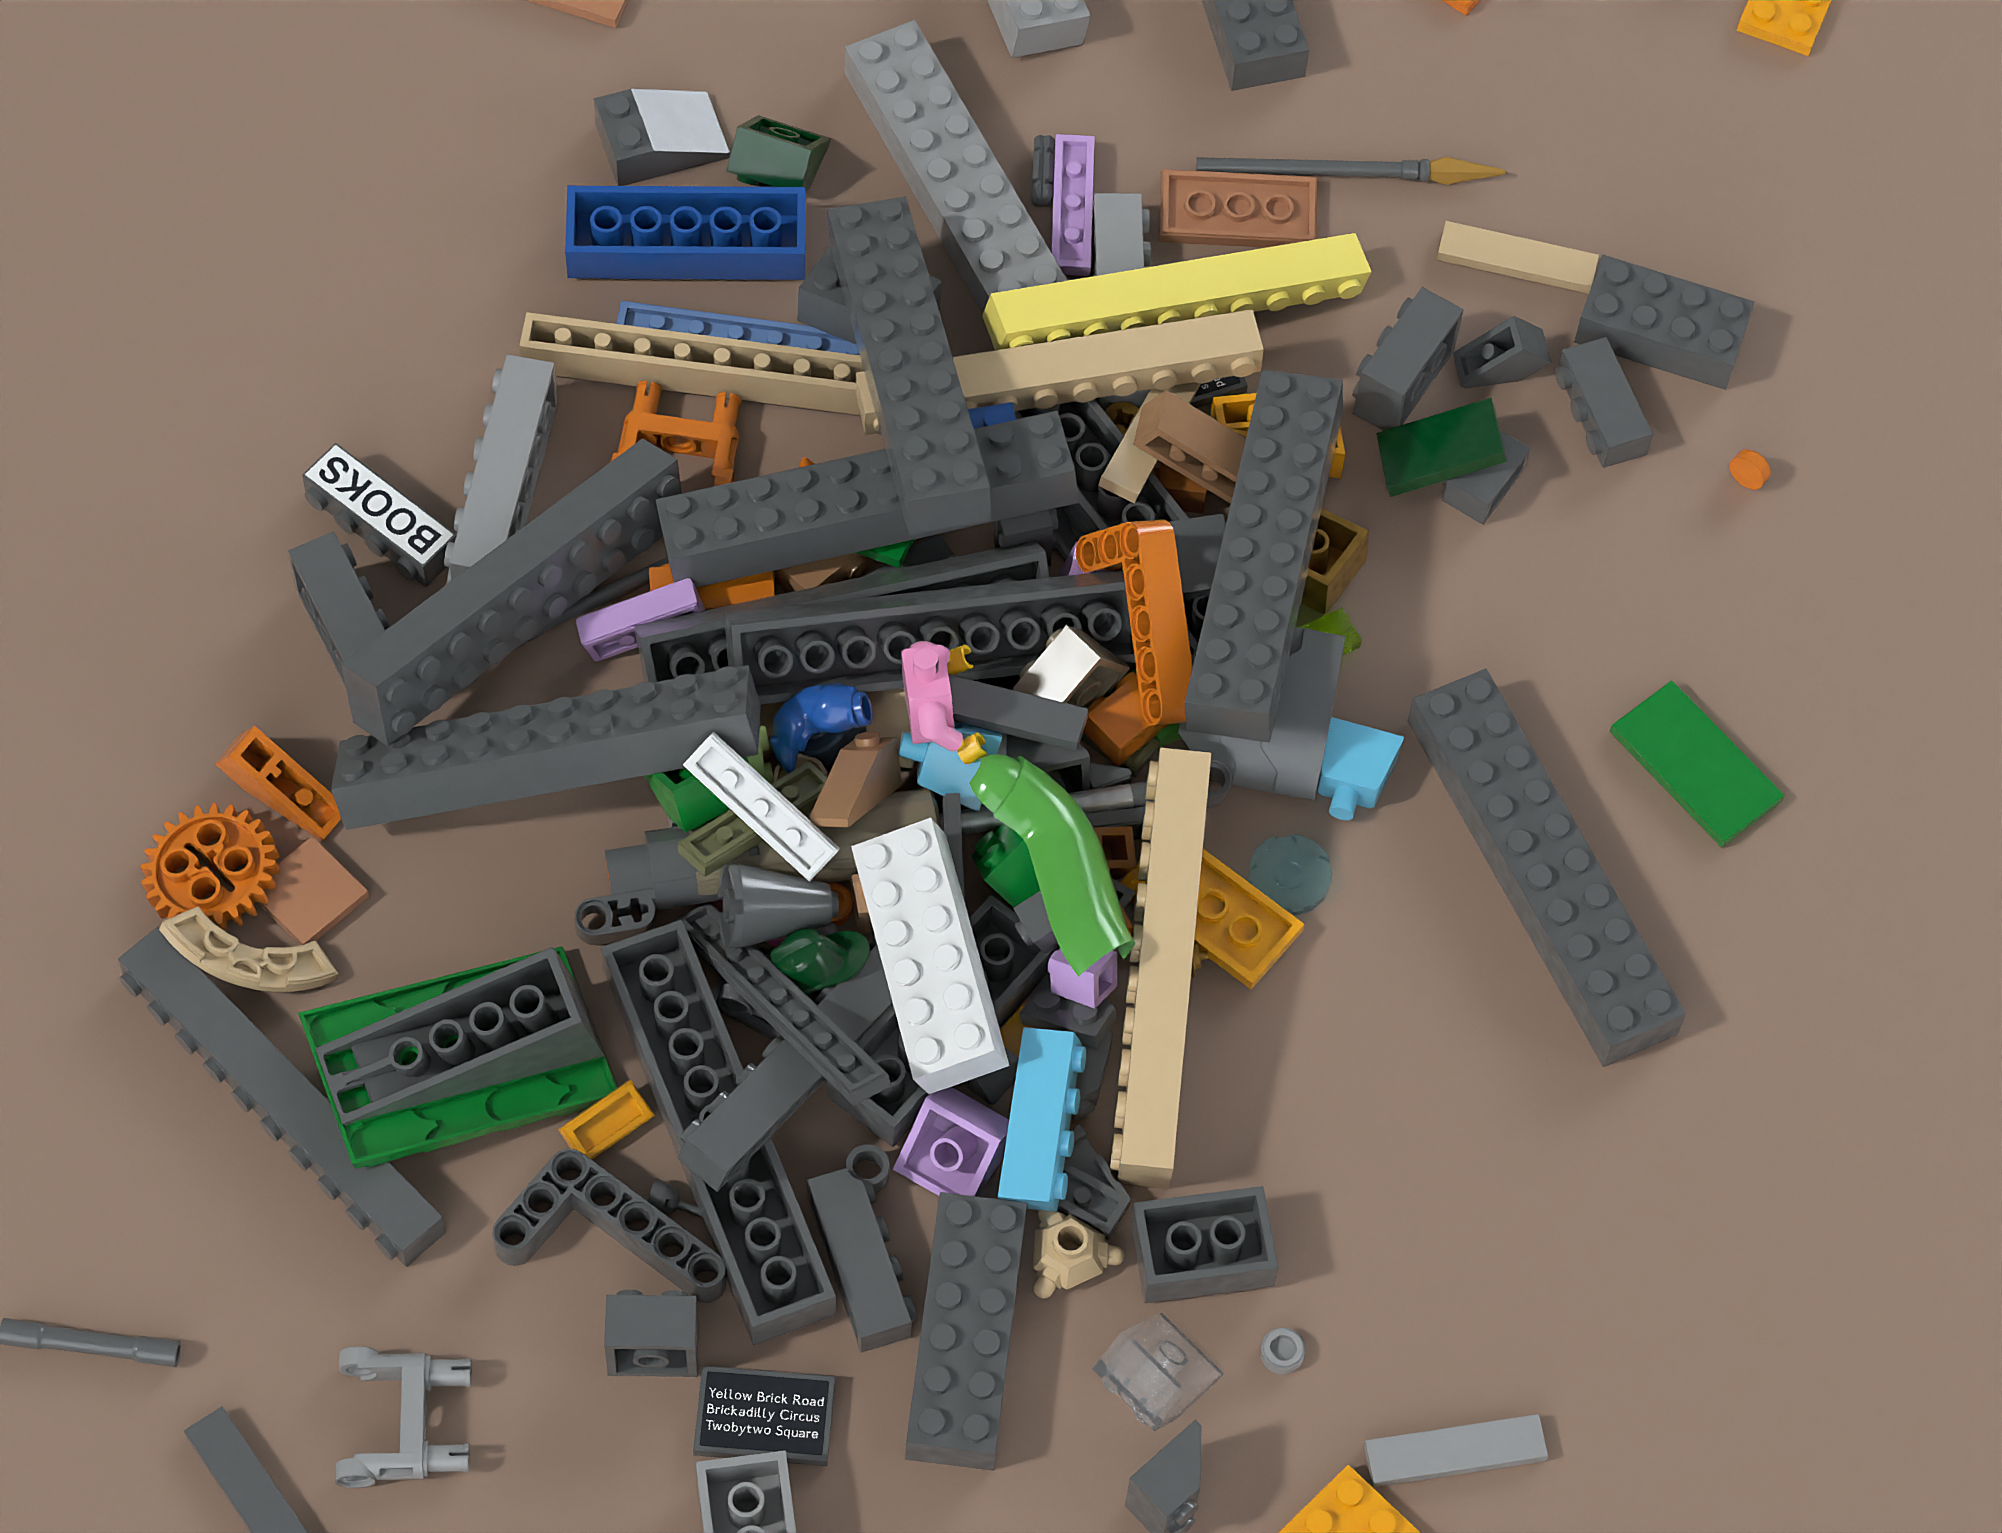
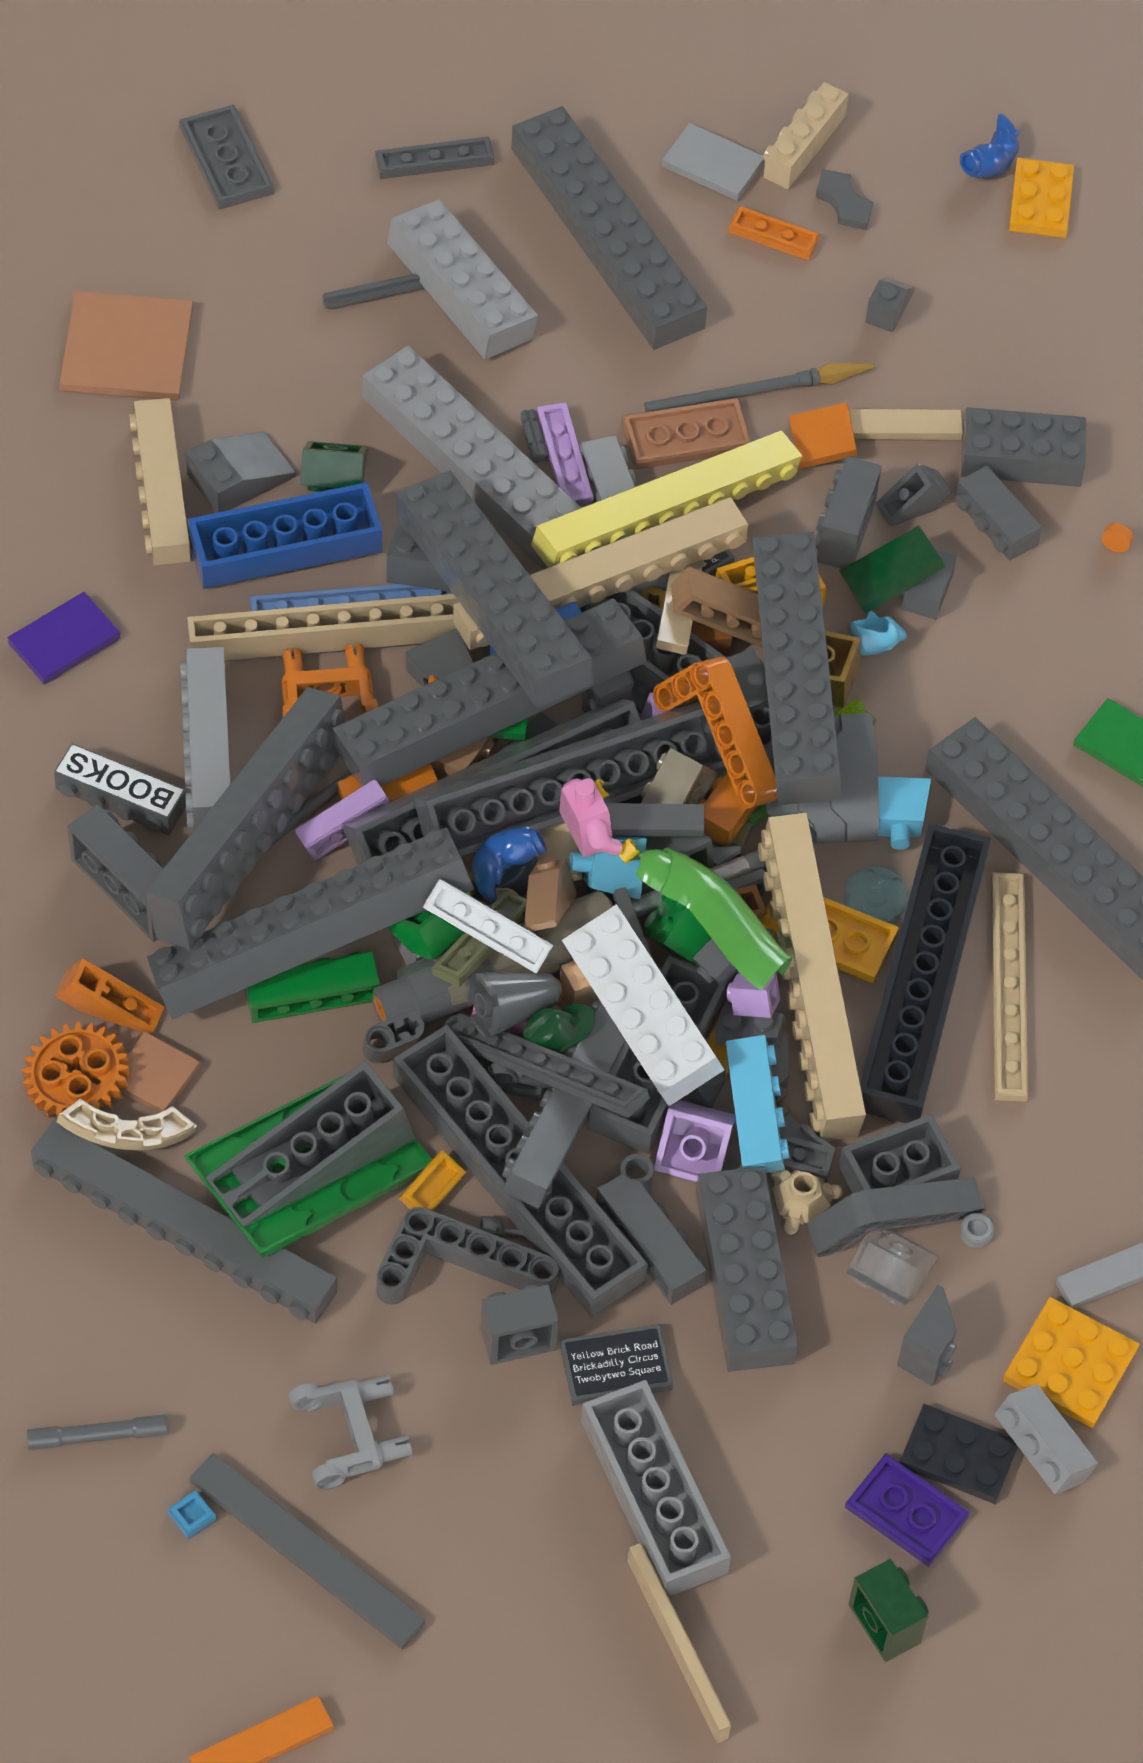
camera: 15 degrees left, 5 degrees down
(173, 1479) = (191, 1514): none -> dark azure tile
(376, 303) = (63, 637): none -> dark purple tile
(539, 828) = (314, 987): none -> green brick
(556, 128) = (161, 482): none -> tan brick
(827, 434) = (437, 657): none -> dark grey torso
(1178, 1302) = (892, 1208): none -> dark grey beam
(1314, 995) = (923, 974): none -> black brick
(1396, 527) = (876, 633): none -> medium azure hair
(1410, 250) = (823, 435): none -> orange tile
(1425, 1036) = (1009, 987): none -> tan tile
(1549, 93) = (888, 303): none -> dark grey slope

